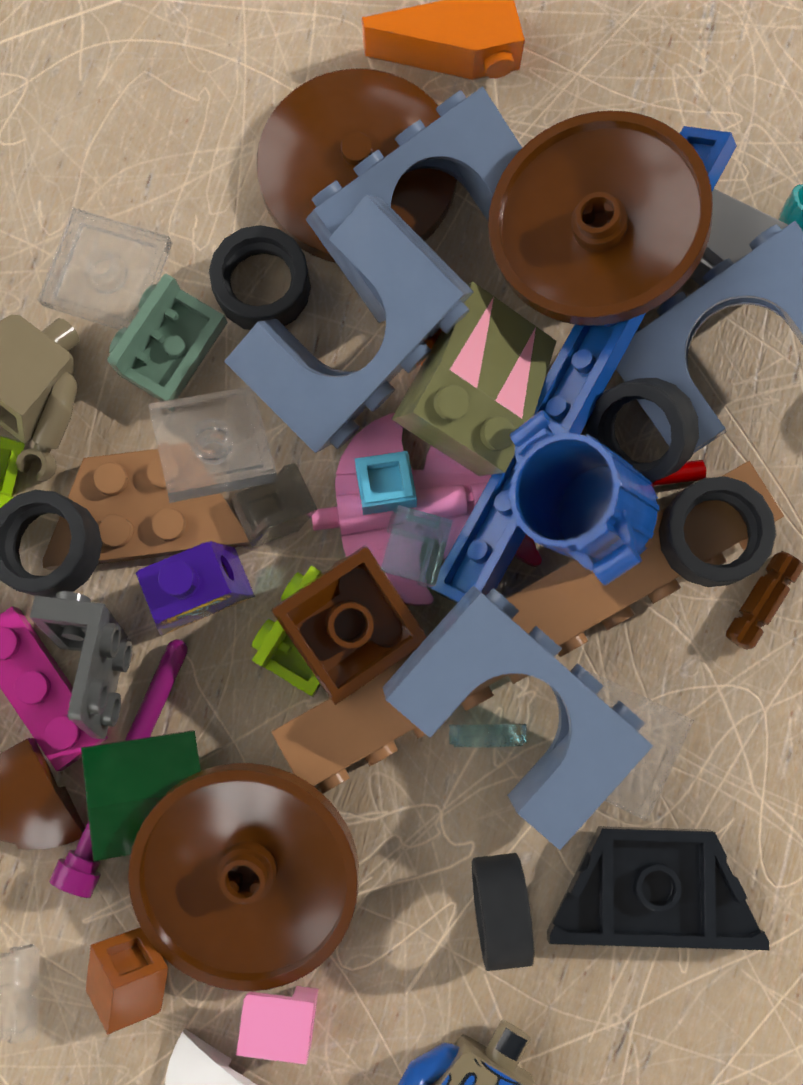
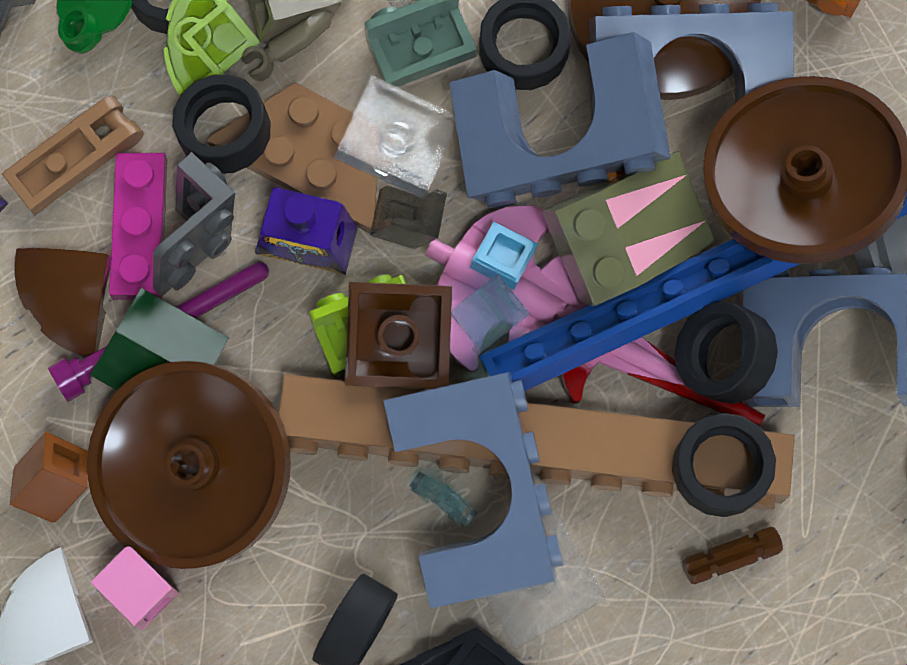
camera: 35 degrees right, 5 degrees down
(580, 498) = (633, 361): blue container -> none

